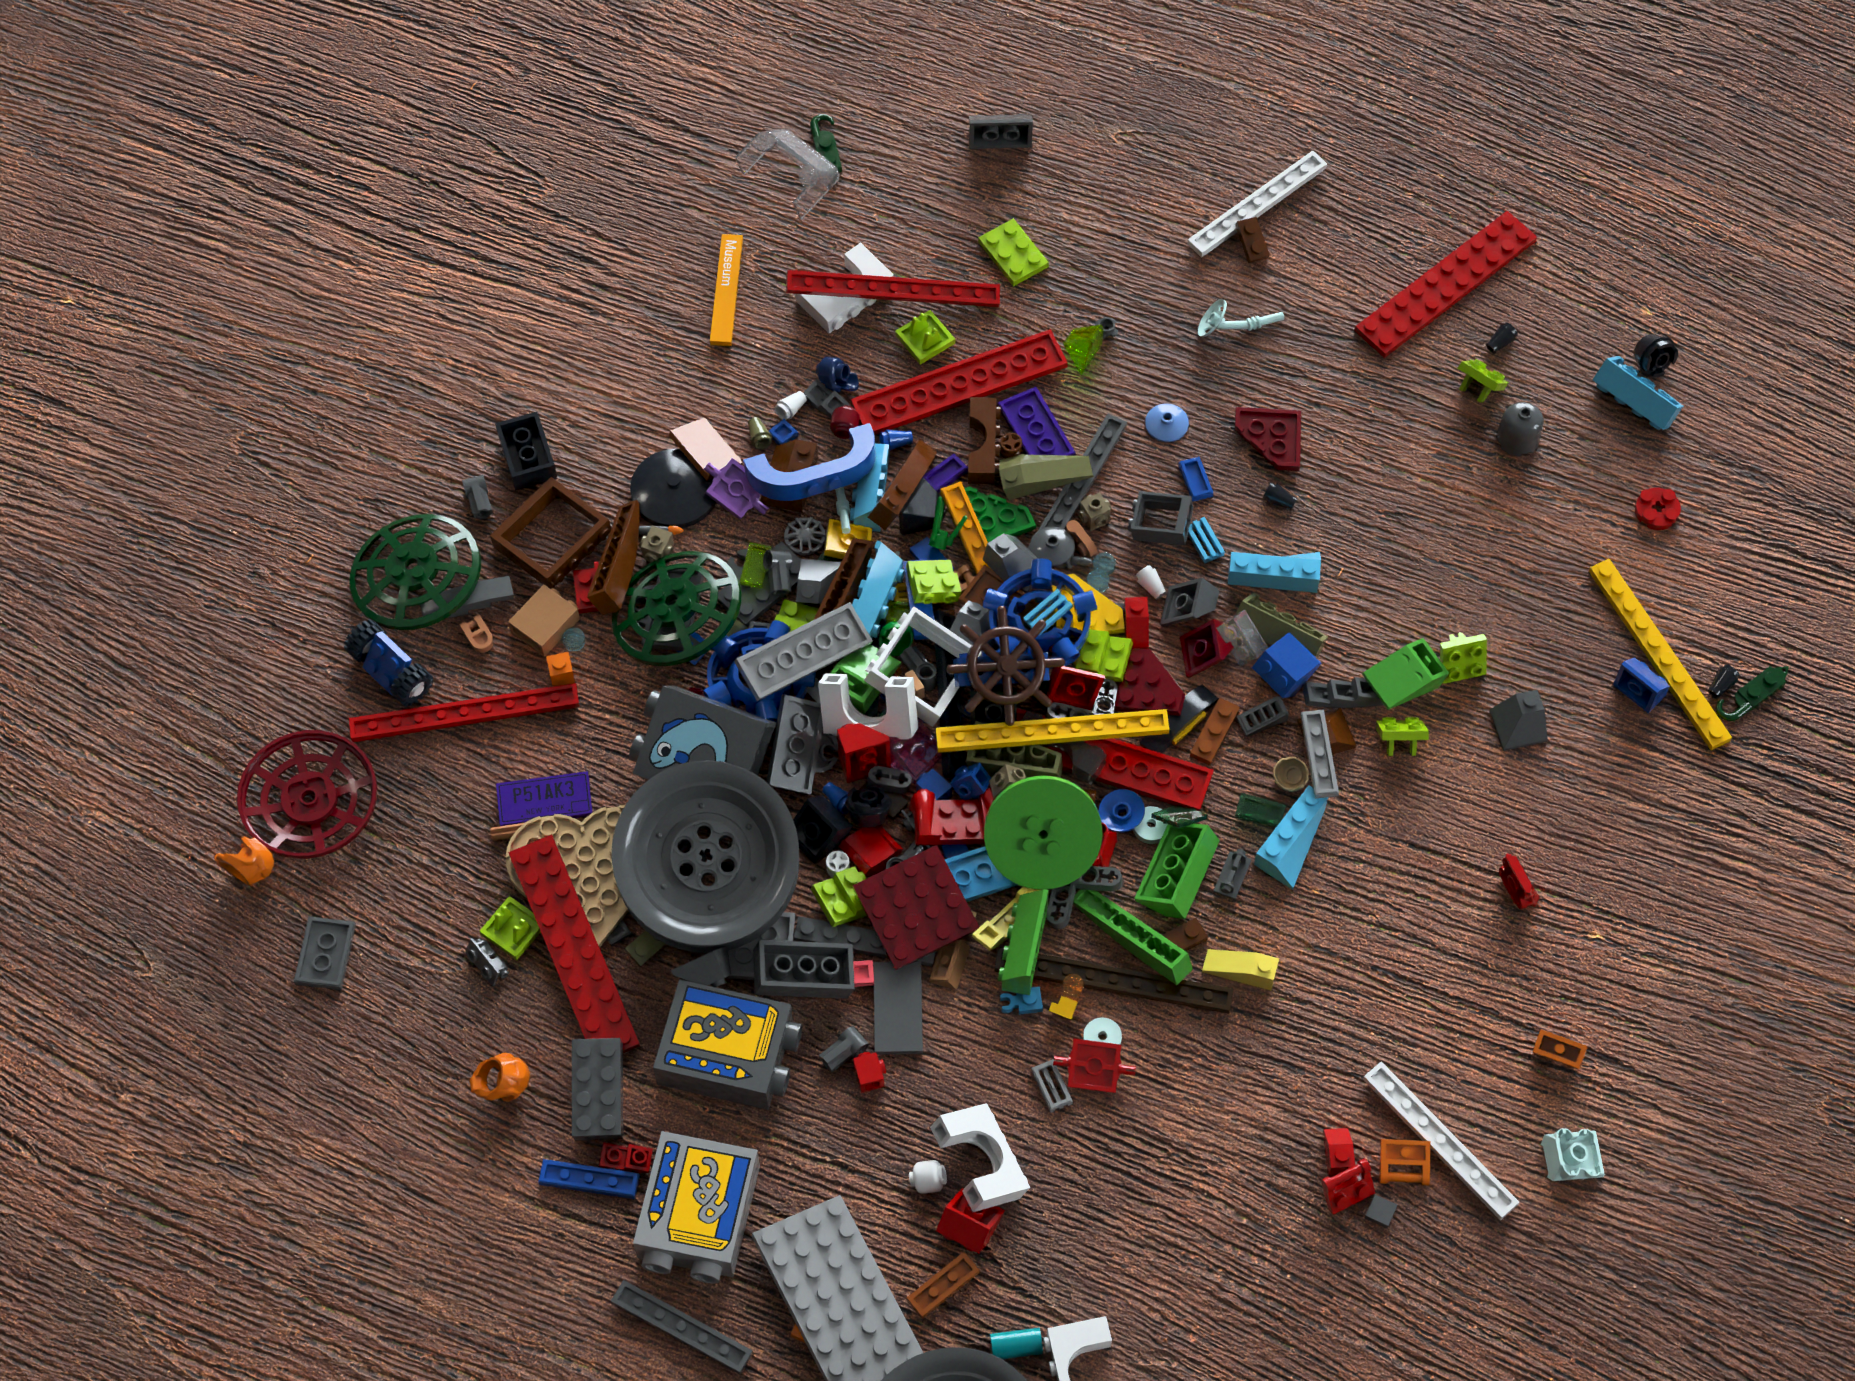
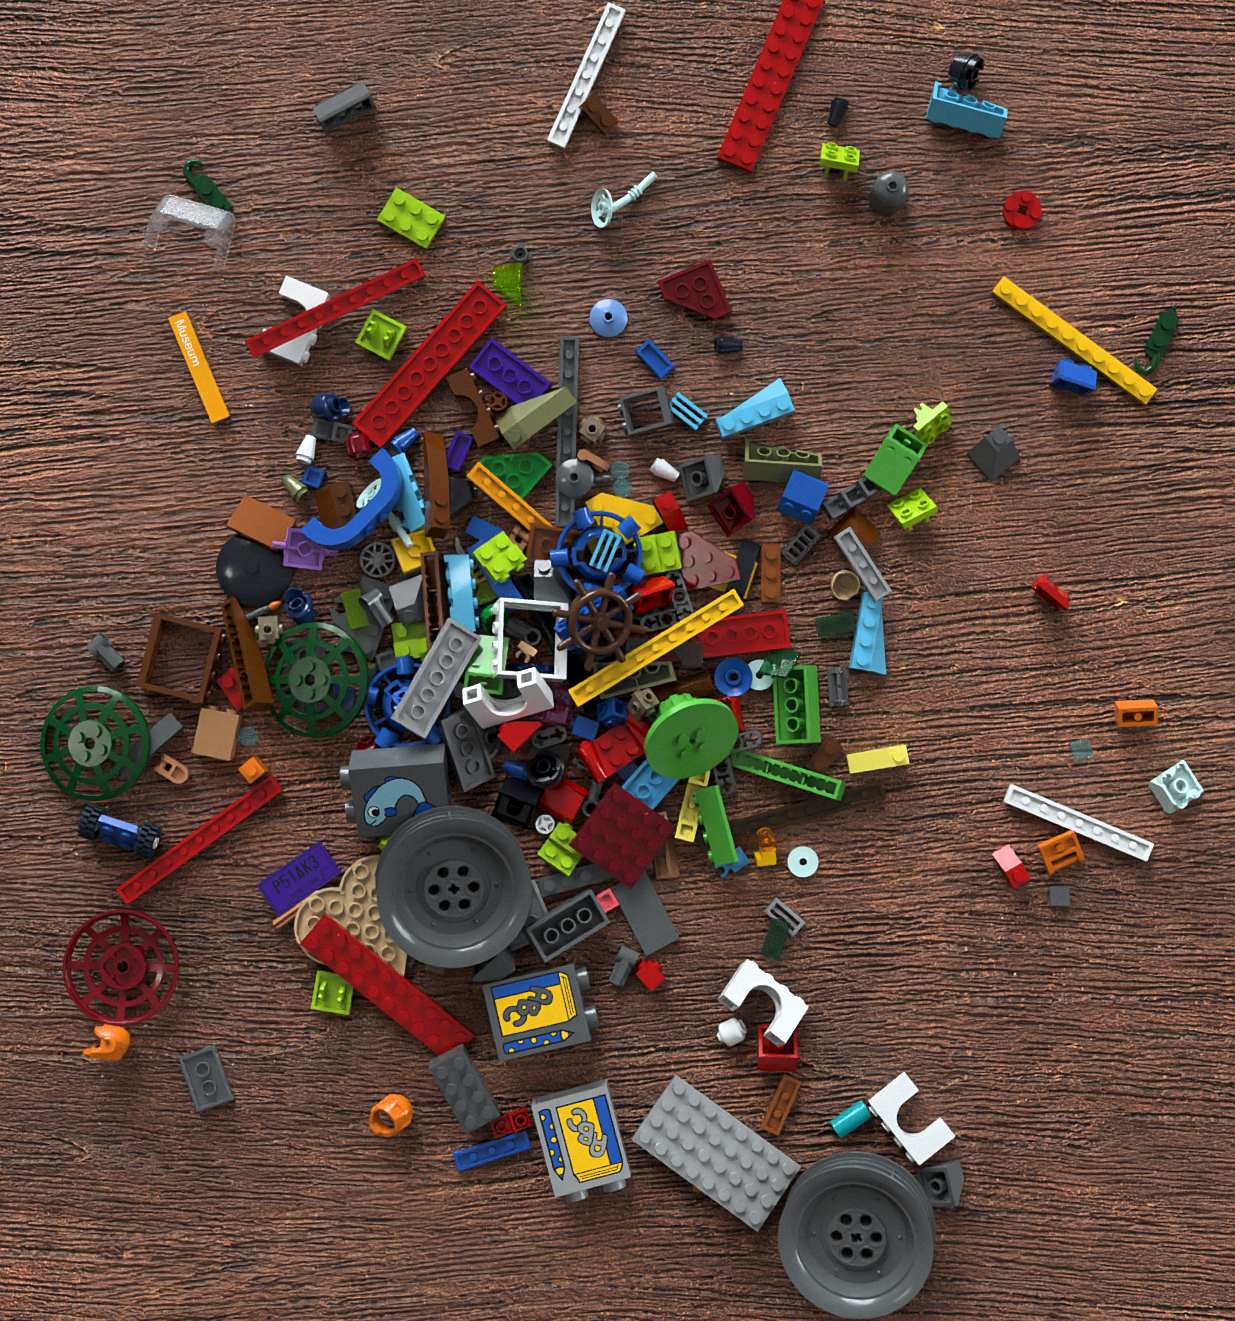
camera: 25 degrees left, 25 degrees up
(479, 954) = (333, 1030): dark grey hinge -> none
(526, 450) = (122, 597): black brick -> none
(682, 1327) = (615, 1224): dark grey plate -> none
(699, 536) = (299, 606): none -> dark blue head
(939, 538) = (484, 514): green plant -> none
(1007, 556) = (552, 508): dark grey slope -> none
(1029, 1101) = (775, 938): none -> clear green tile
(1094, 1065) = (809, 890): red plate -> none
(1244, 637) = (758, 488): clear brick -> none
(1348, 1187) = (1030, 896): red plate -> none
(1479, 1065) = (1081, 749): none -> clear light blue tile
(1724, 679) = (1132, 343): black cone -> none

